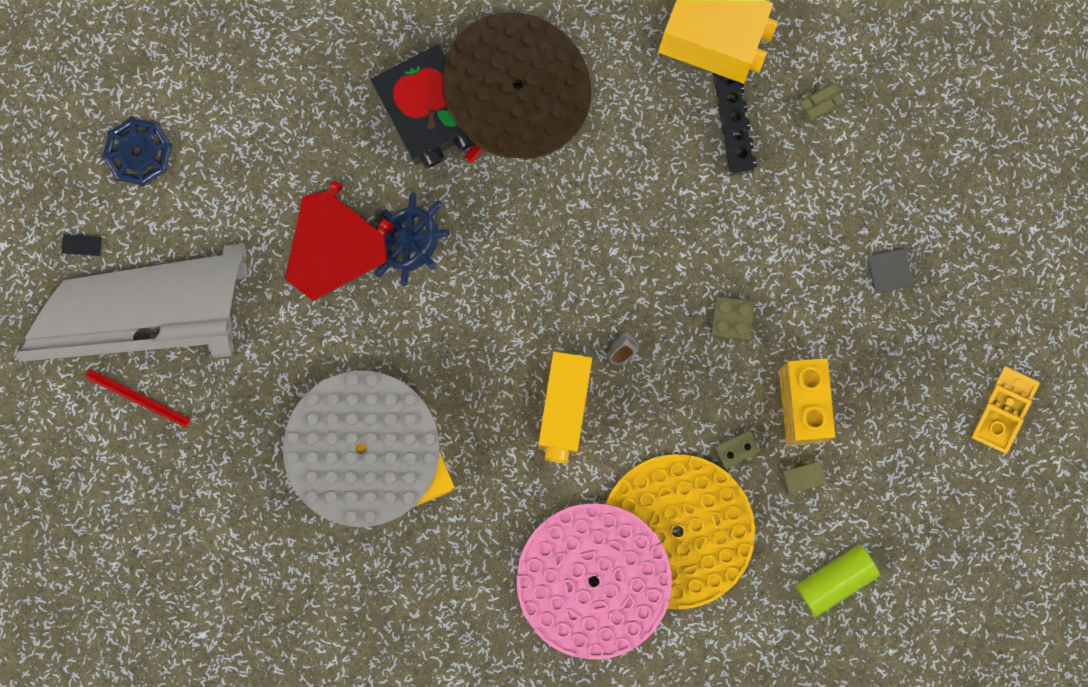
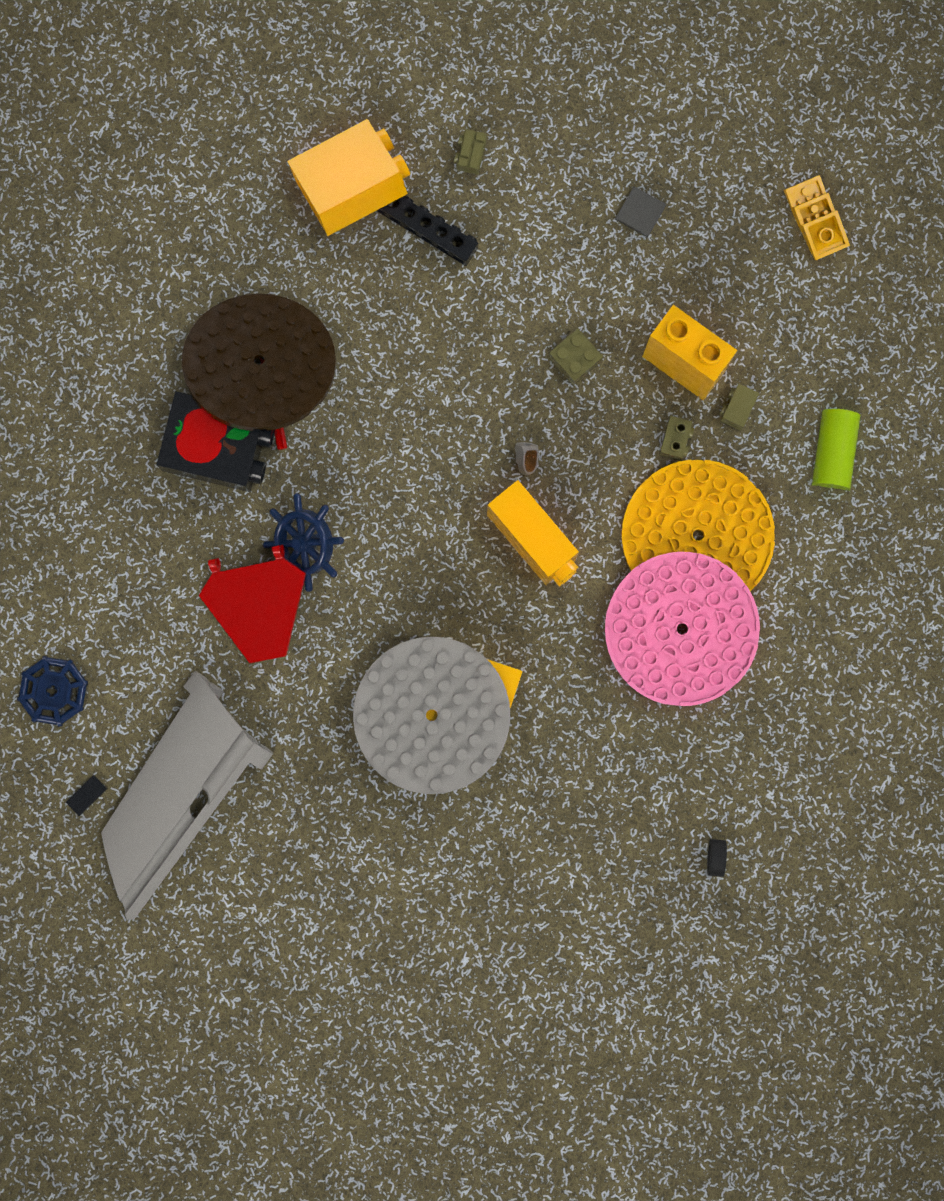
camera: 45 degrees left, 0 degrees up
(137, 398) = (241, 853): red axle -> none

